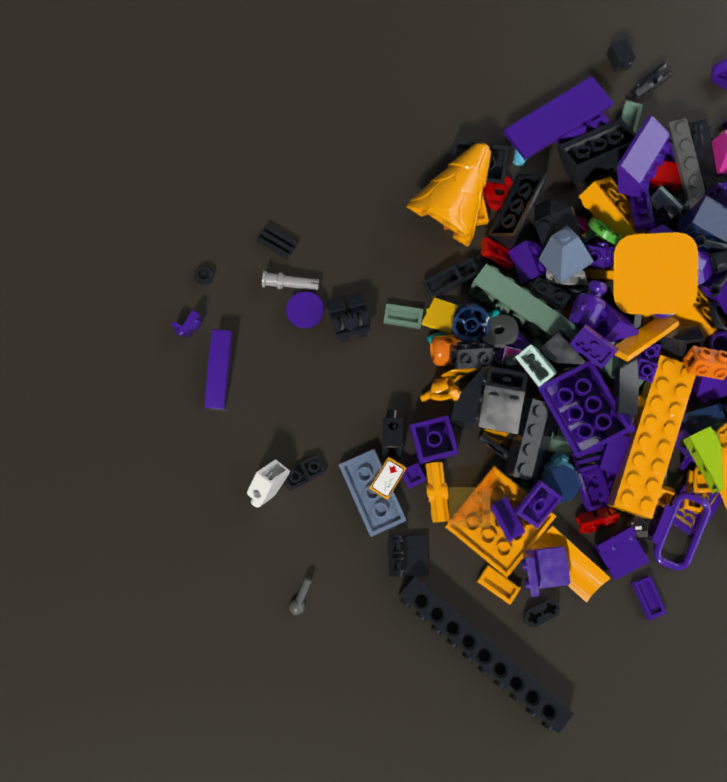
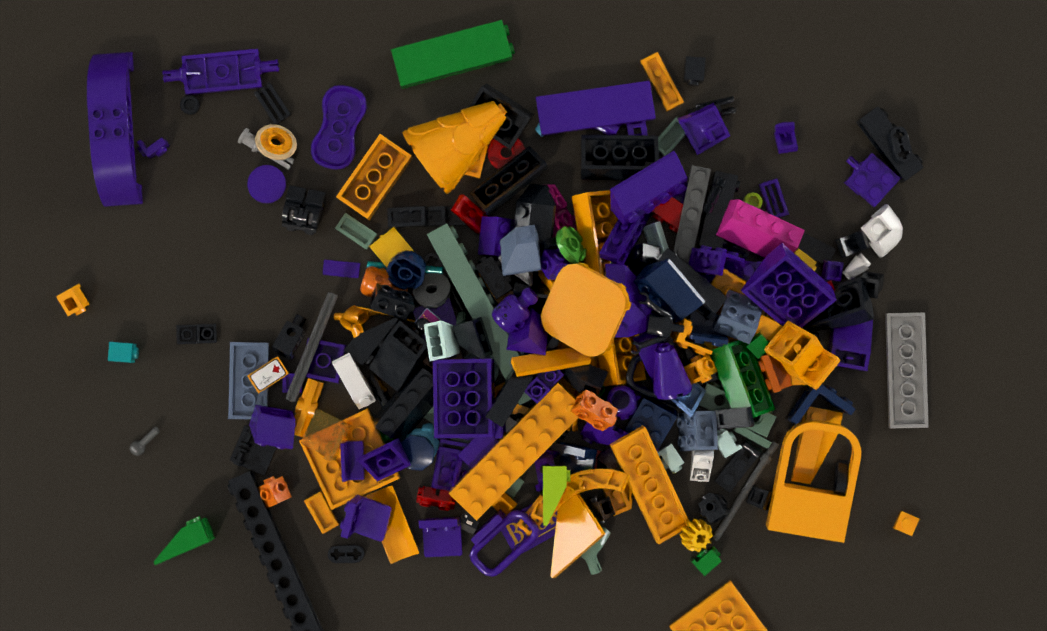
camera: 20 degrees right, 10 degrees up
(146, 326) = (112, 129): none -> dark purple slope
(169, 497) = (73, 300): none -> light orange brick
(218, 369) = (162, 202): dark purple slope -> none
(219, 233) = (221, 71): none -> dark purple plate
(242, 521) = (122, 352): none -> teal brick
(262, 488) = (151, 333): white torso -> none
(286, 268) = (275, 152): none -> wheel
(347, 246) = (342, 111): none -> dark purple plate
(390, 668) = (189, 537): none -> green slope
(398, 260) = (374, 177): none -> light orange brick
(406, 355) = (341, 268): none -> dark purple sticker
(412, 132) = (452, 54): none -> green brick
(418, 429) = (311, 347): none -> dark grey axle
(418, 522) = (273, 427): none -> dark purple slope
(447, 584) = (274, 491): none -> orange brick
(472, 444) = (354, 381): none -> white slope
(584, 69) = (662, 81): none -> light orange tile
(593, 346) = (494, 348): dark purple bracket -> none
(648, 597) = (447, 585): dark purple tile -> none
(654, 96) = (704, 128): none -> dark purple plate

